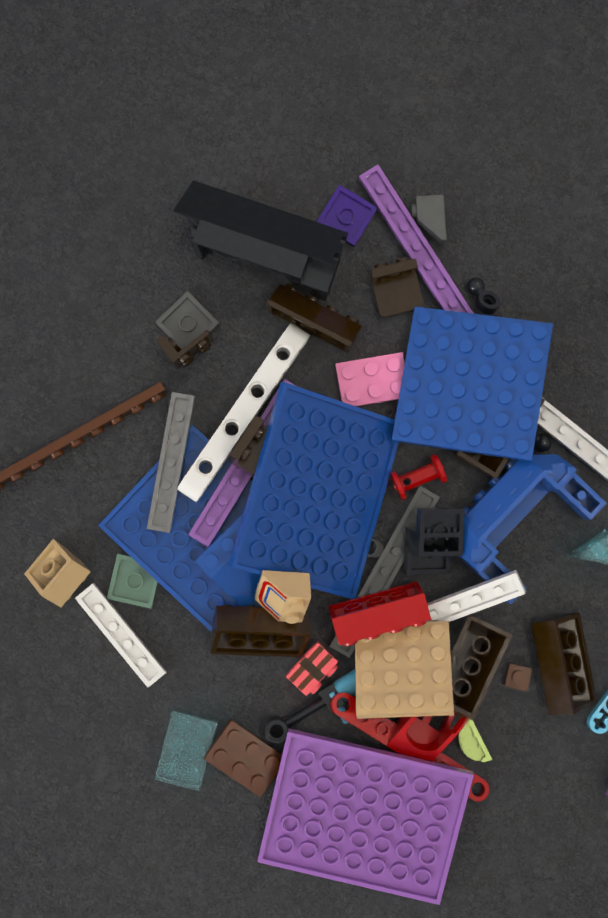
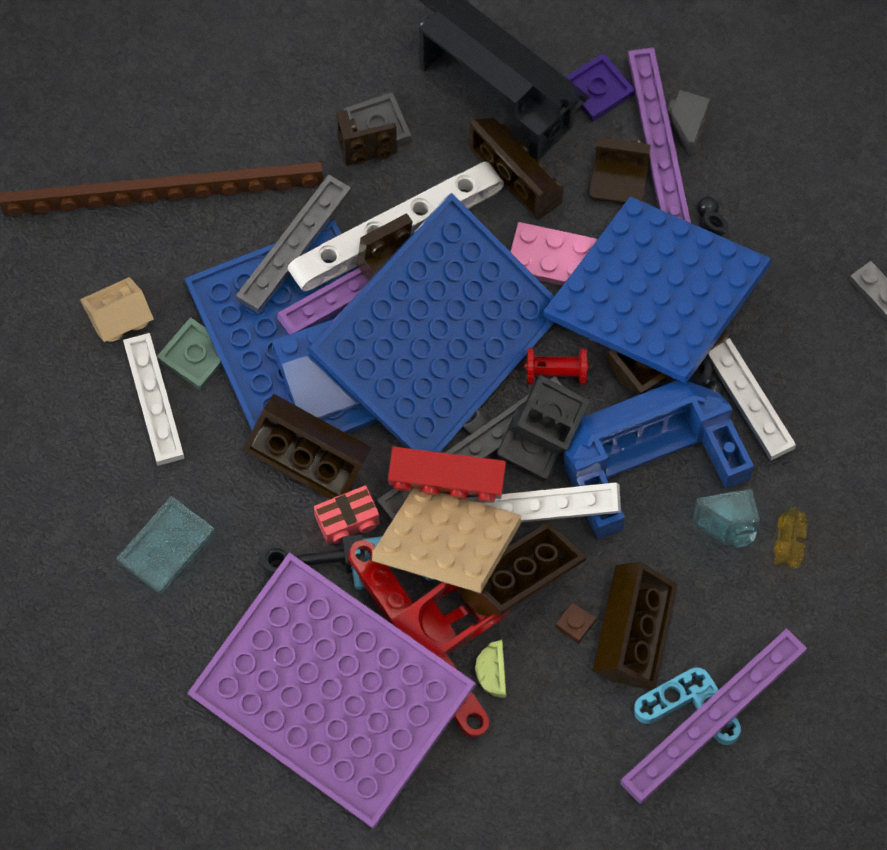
camera: 25 degrees right, 20 degrees down
(244, 757) = (225, 576): reddish brown plate -> none
(284, 594) = (351, 408): tan slope -> none

